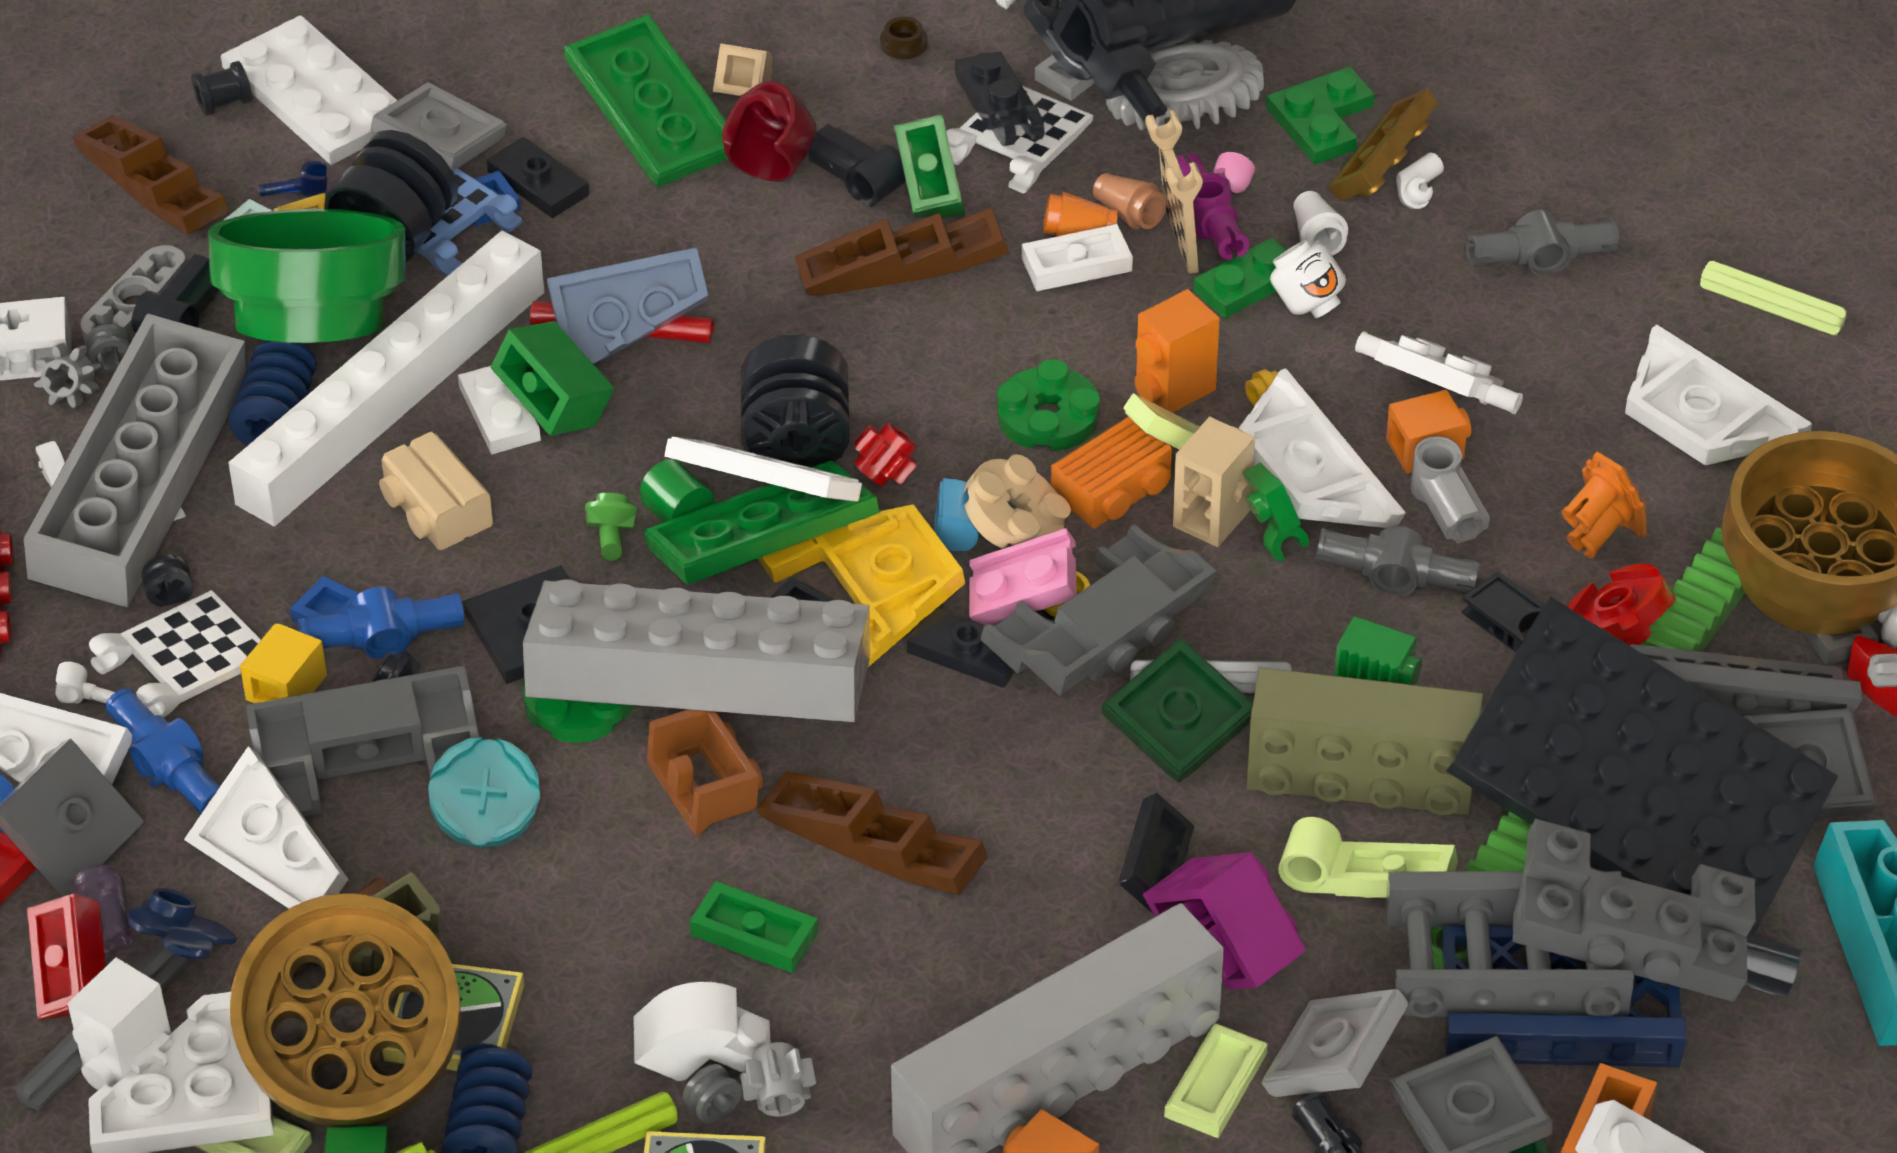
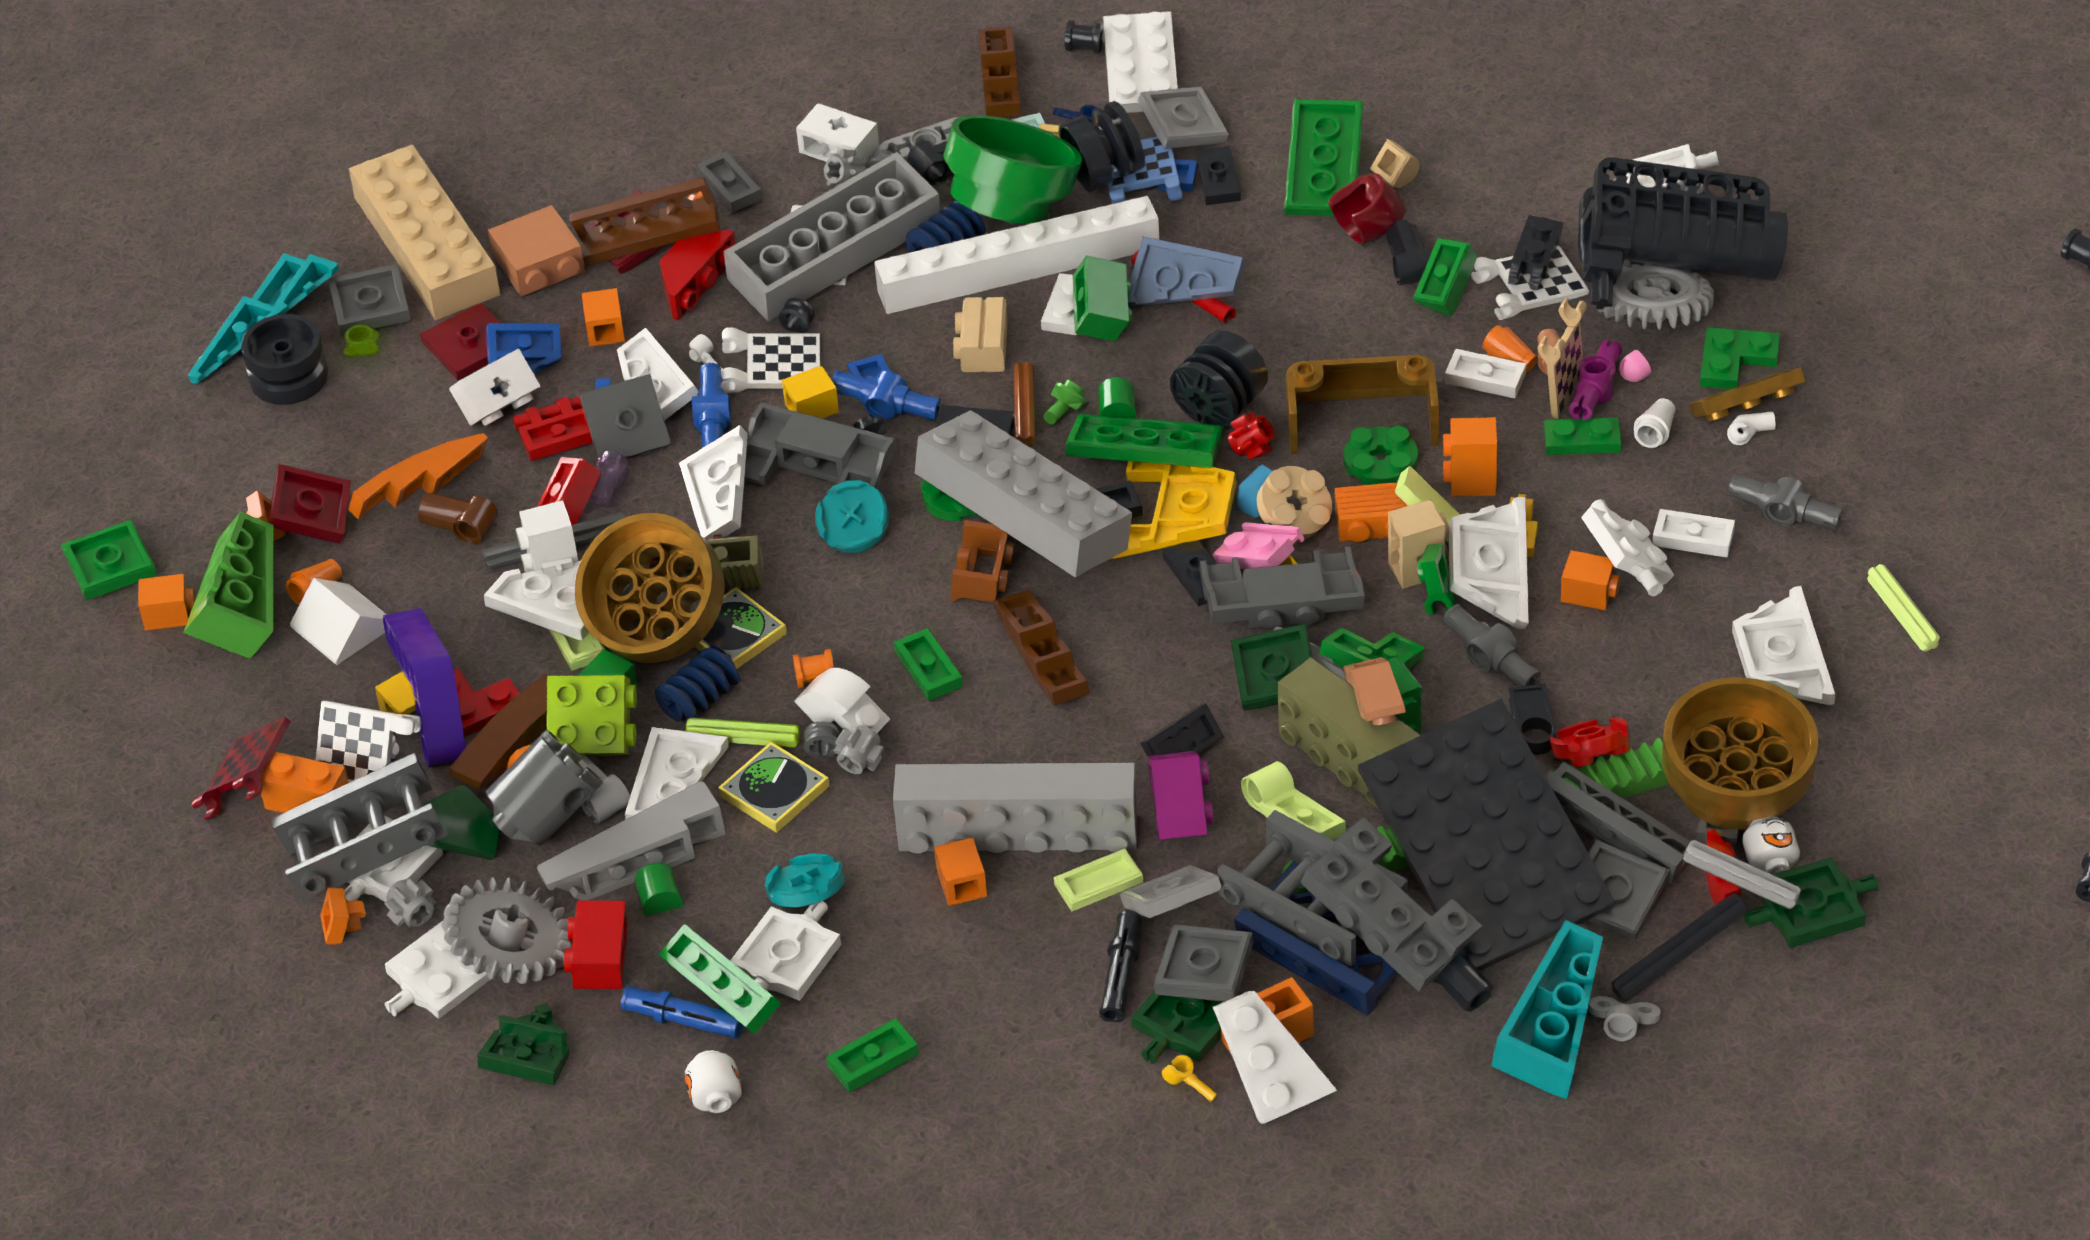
camera: 40 degrees right, 0 degrees up
(173, 919) = (629, 500): dark blue plate -> none
(556, 543) = (1024, 403): none -> dark orange axle
(613, 1008) = (810, 667): none -> orange bush
(764, 468) = (1165, 409): white tile -> none
(887, 257) = (1375, 320): reddish brown slope -> none
(892, 365) = (1361, 380): none -> pearl gold windscreen
(903, 38) = (1516, 187): dark brown plate -> none
(1295, 635) = (1348, 648): none -> green plate
(1308, 279) = (1606, 452): white head -> none
(1393, 661) = (1375, 690): none -> nougat slope
(1446, 489) = (1564, 620): light grey piece -> none
(1481, 323) = (1693, 533): none -> white plate
(1604, 505) = (1653, 680): orange connector -> none

